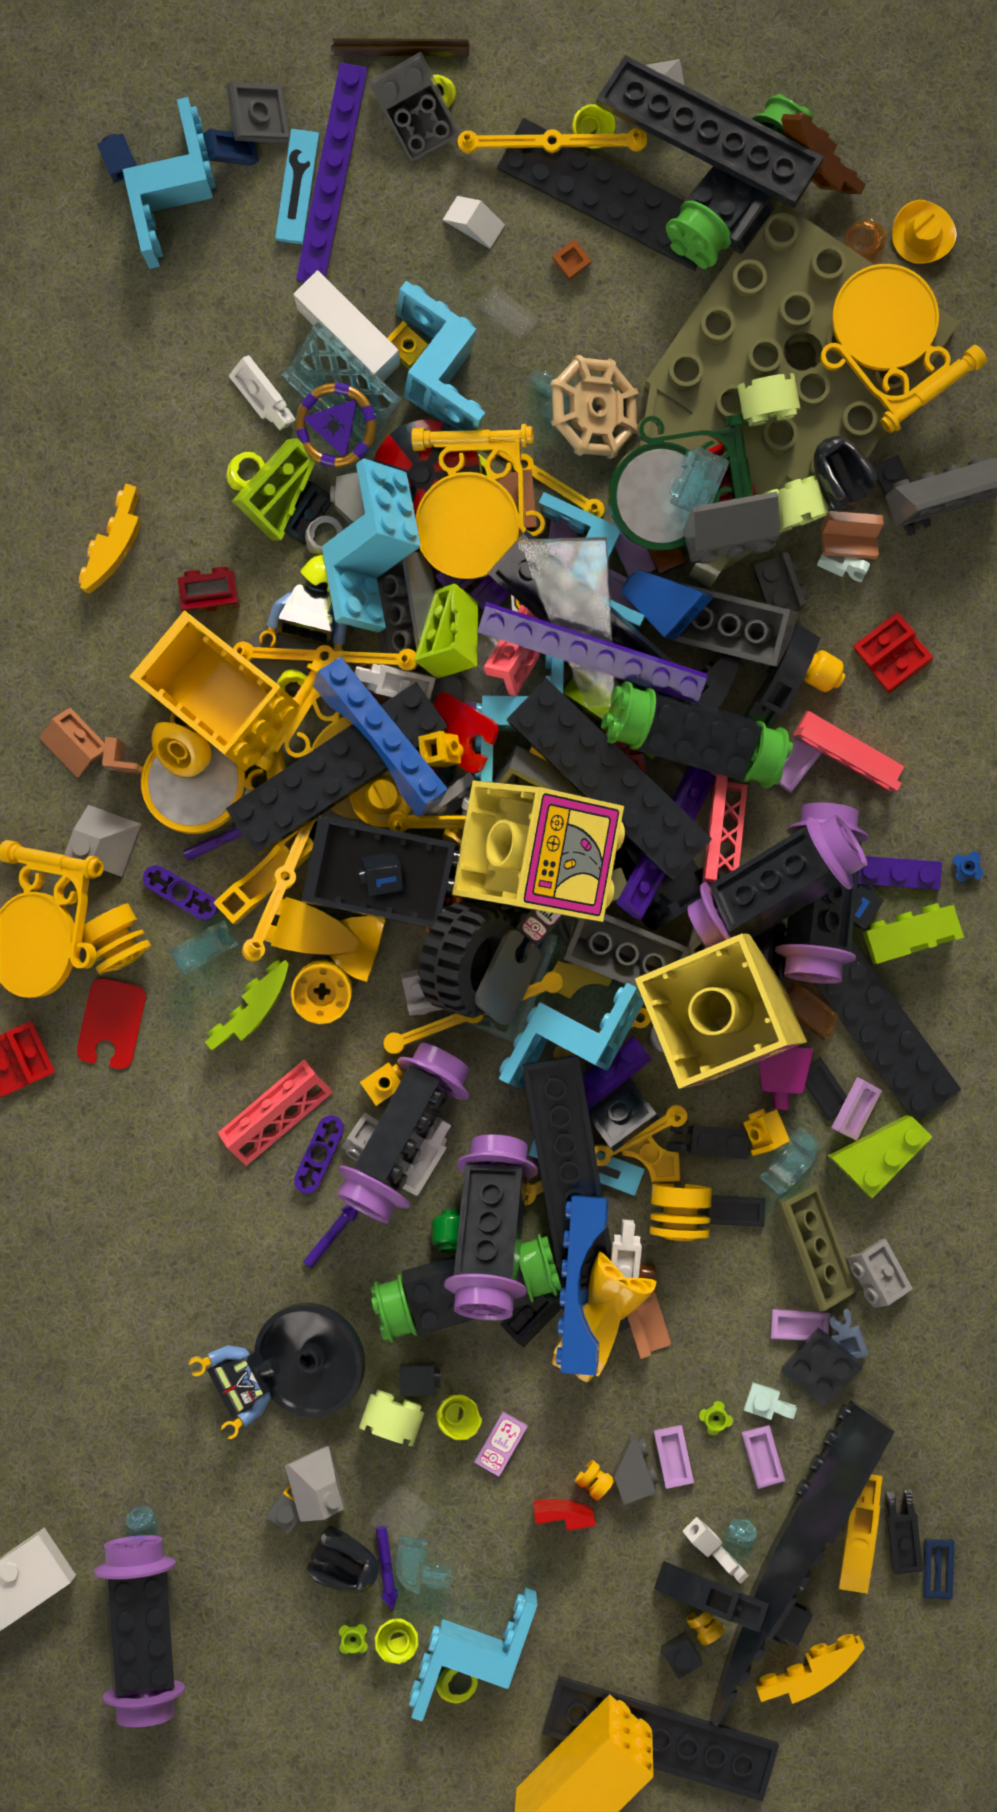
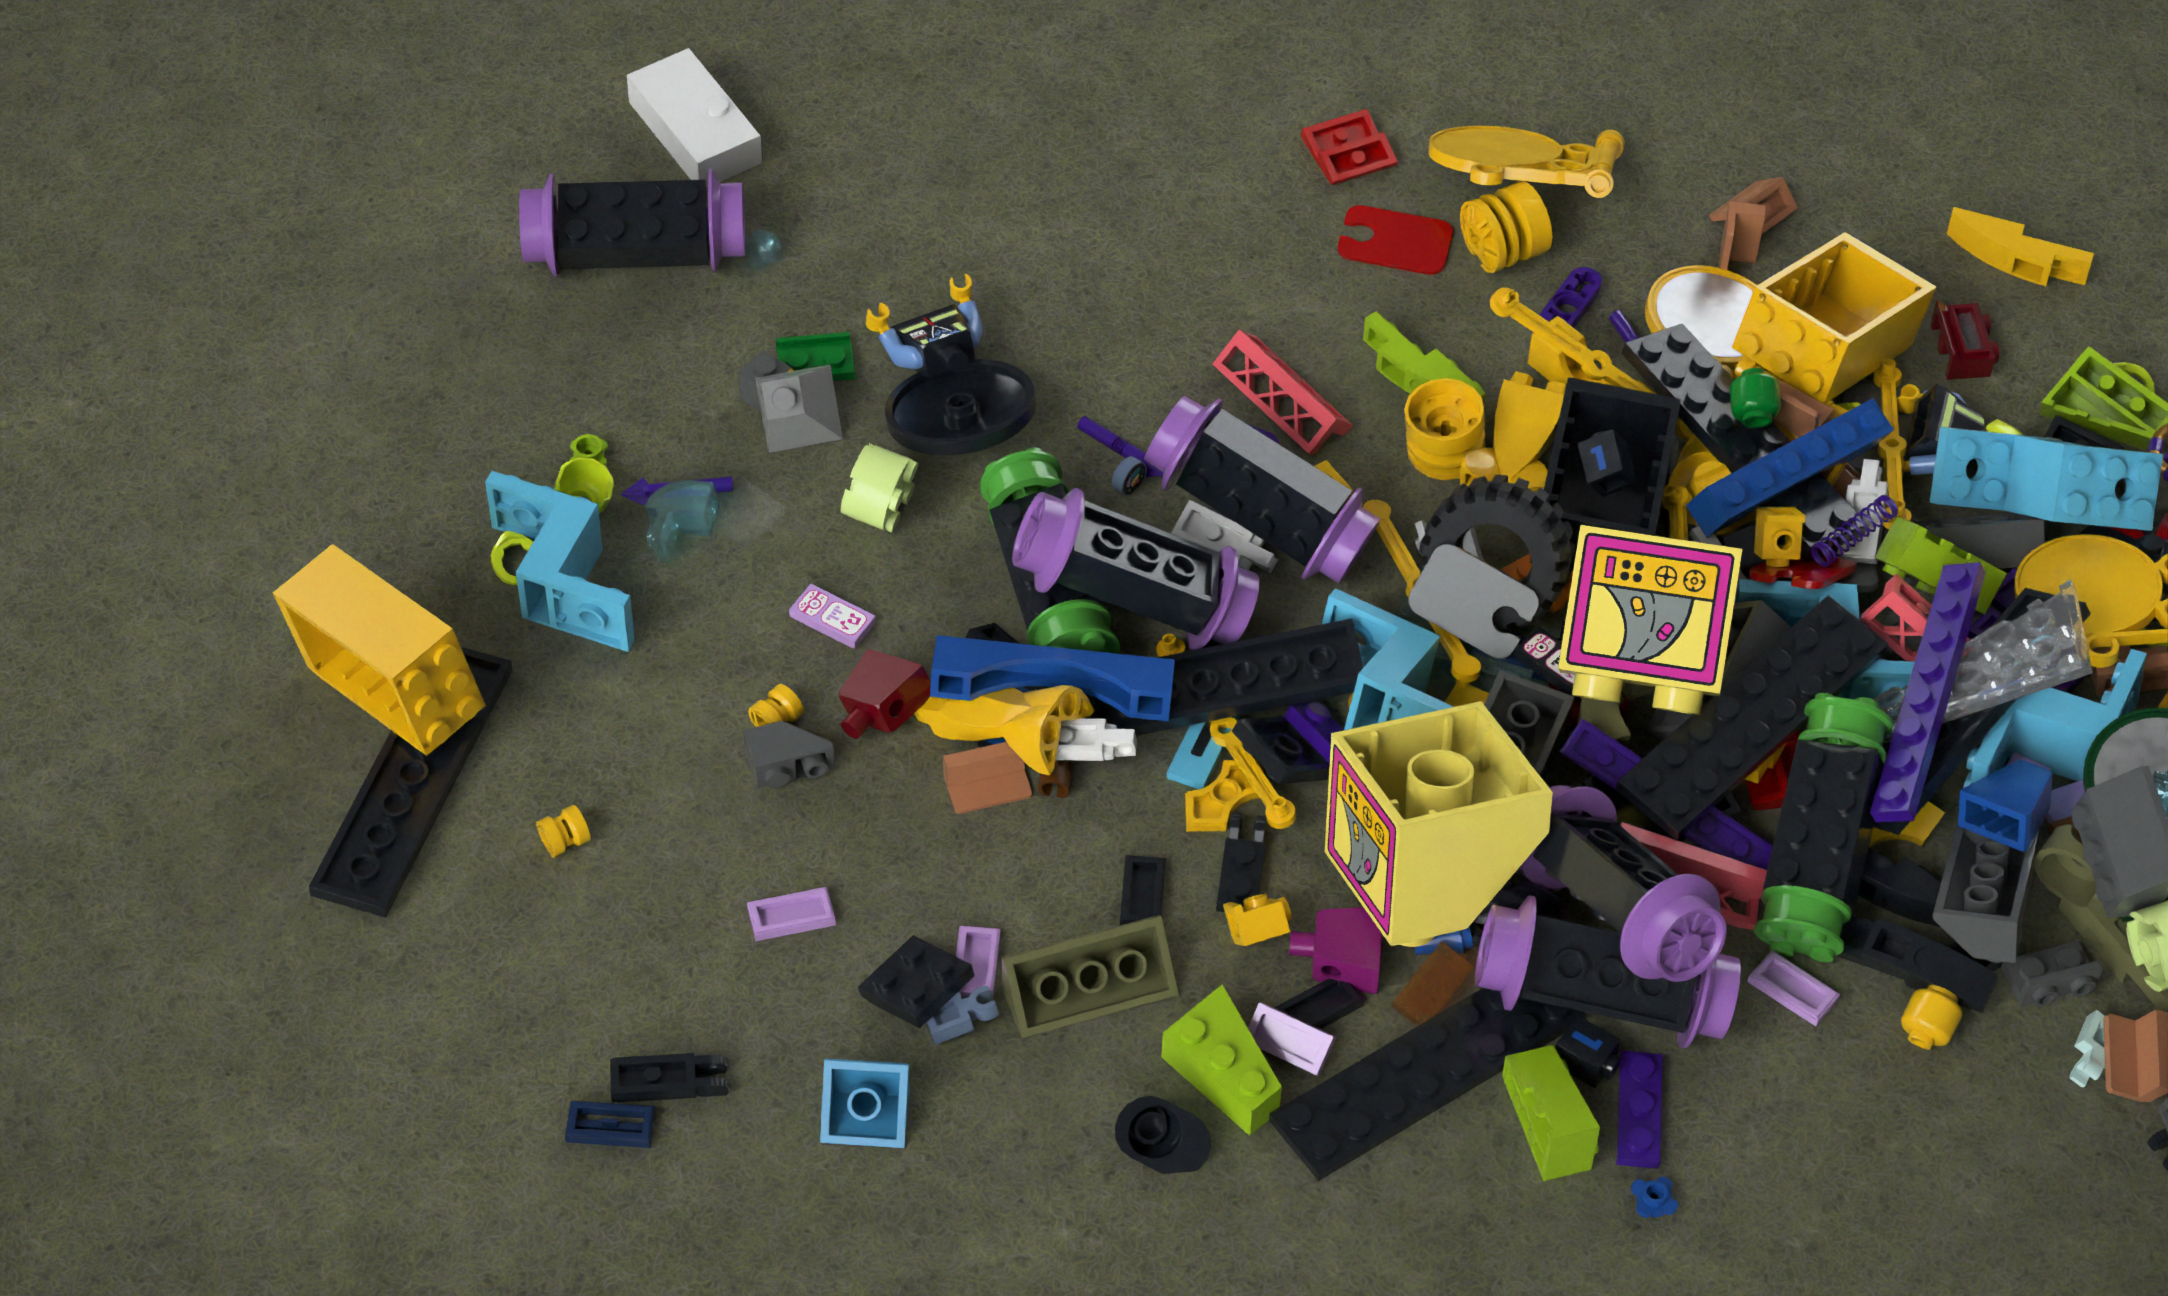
camera: 95 degrees right, 35 degrees down
(105, 837) = (1629, 230): light grey slope -> none
(180, 749) = (1739, 292): yellow hat -> none
(203, 948) = (1497, 334): clear light blue brick -> none
(252, 1472) = (819, 350): none -> green plate
(305, 730) = (1800, 412): none -> nougat panel
(321, 759) = (1755, 398): none -> green head
(342, 1563) = (689, 439): black hair -> none
(364, 1228) = (1128, 475): none -> tile
(419, 1379) = (926, 523): black brick -> none
(448, 1417) = (874, 557): neon yellow hair -> none
(452, 718) = (1877, 502): none -> dark purple piece
(575, 1513) = (737, 663): red slope -> none
(582, 1406) = (882, 693): none -> dark red torso
(673, 1456) = (799, 808): lavender tile -> none
(680, 1211) = (1147, 806): yellow wheel -> none
(682, 1655) = (525, 797): black brick -> none
(709, 1543) = (677, 839): white piece -> none
(712, 1596) = (605, 821): black slope -> none
(723, 1421) = (850, 848): lime plate -> none
(741, 1533) = (686, 881): clear light blue plate -> none
(764, 1402) = (867, 917): light aqua plate -> none
(791, 1161) = (1217, 943): clear light blue brick -> none
(794, 1625) = (556, 929): black brick -> none
(815, 1518) = (666, 939): black wedge -> none
(823, 1668) = (482, 957): yellow slope -> none
(849, 751) = (1815, 1042): coral fence -> none
(861, 1539) = (679, 1010): yellow slope -> none
(879, 1274) = (1048, 1061): light grey bracket -> none
(884, 643) = (1980, 1104): red slope -> none
(923, 1397) = (865, 1103): none -> dark azure slope
(939, 1198) = (1178, 1135): none -> black piece

